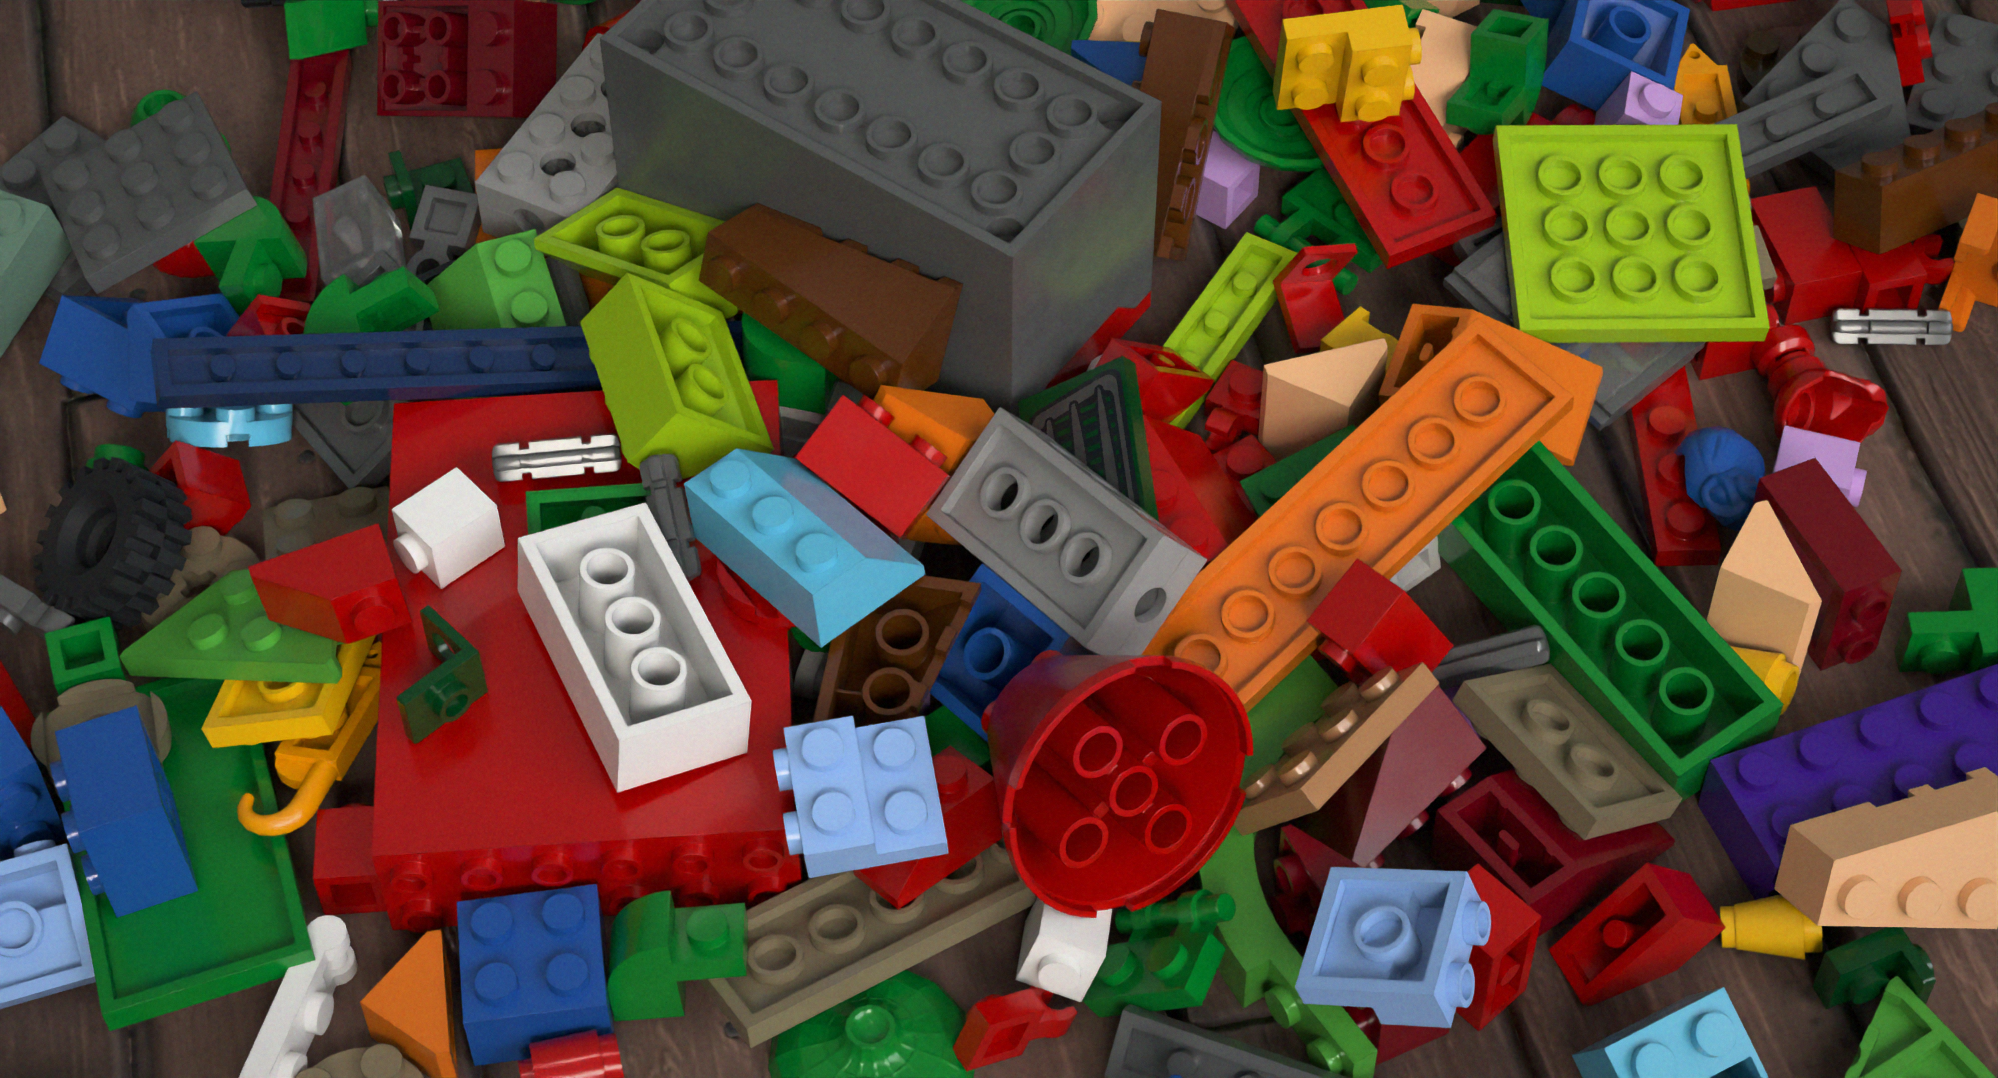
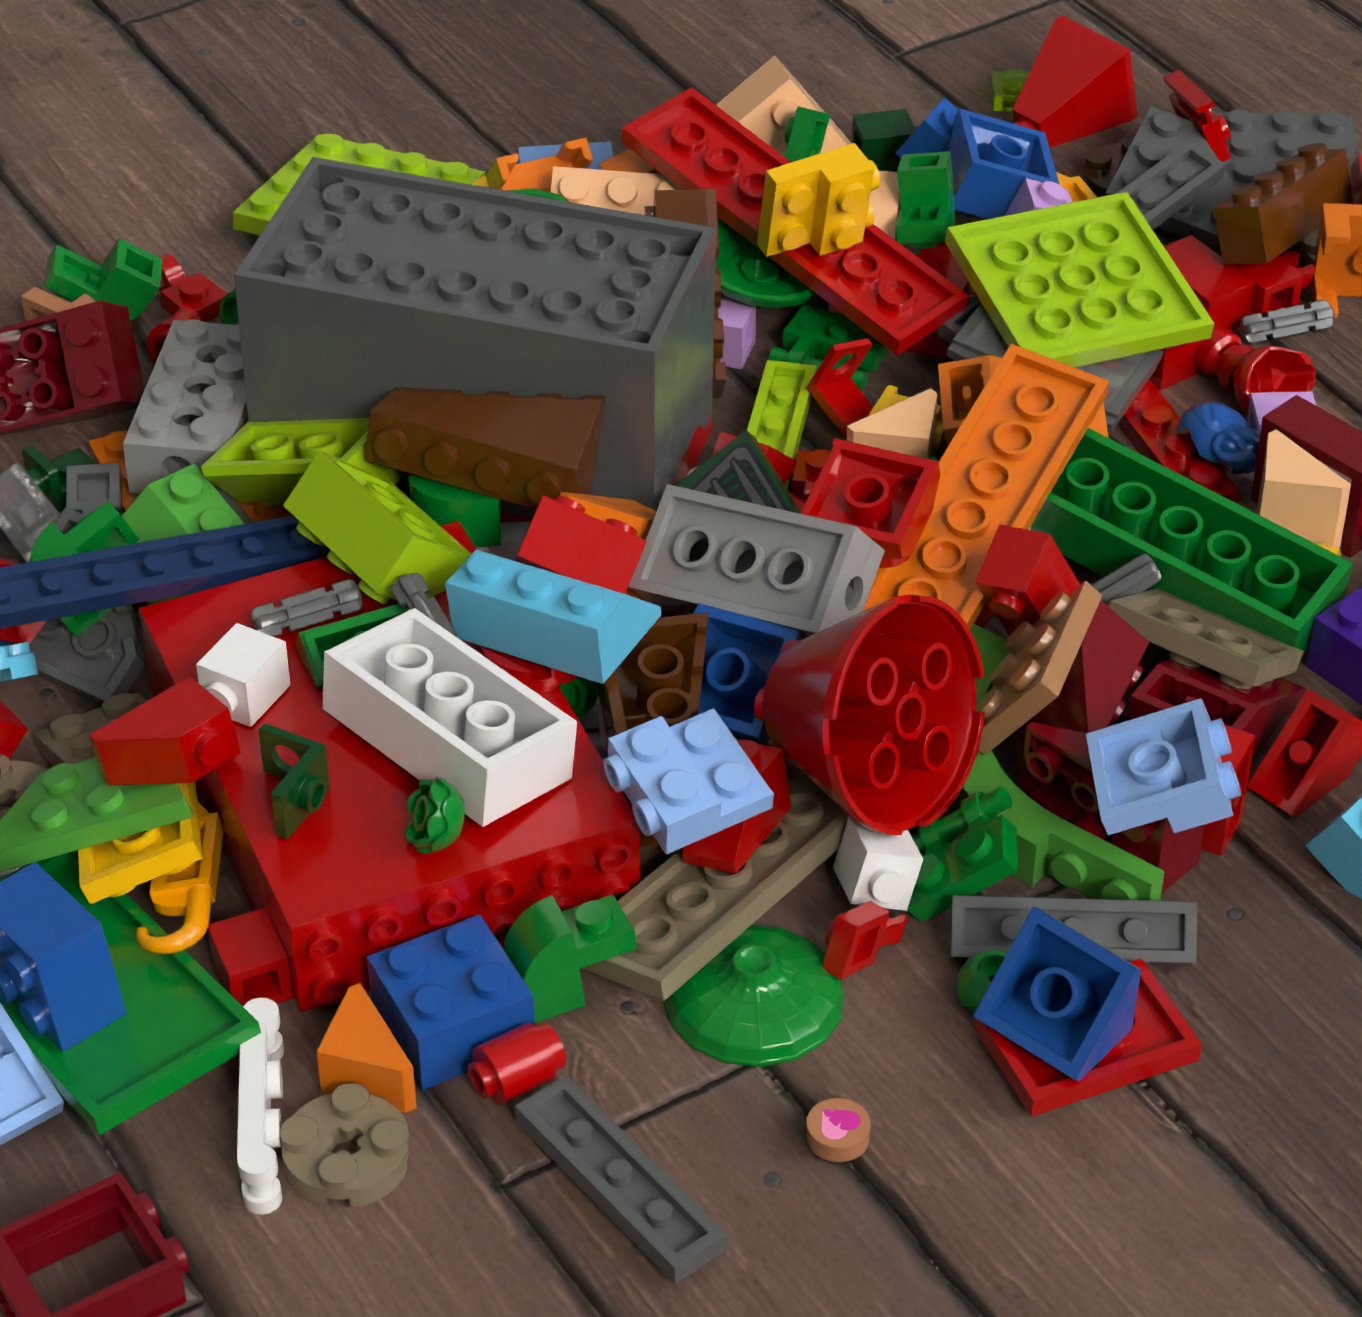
camera: 20 degrees left, 10 degrees down
(569, 767) = (435, 815): none -> green plate
(1224, 488) = (879, 493): none -> red slope

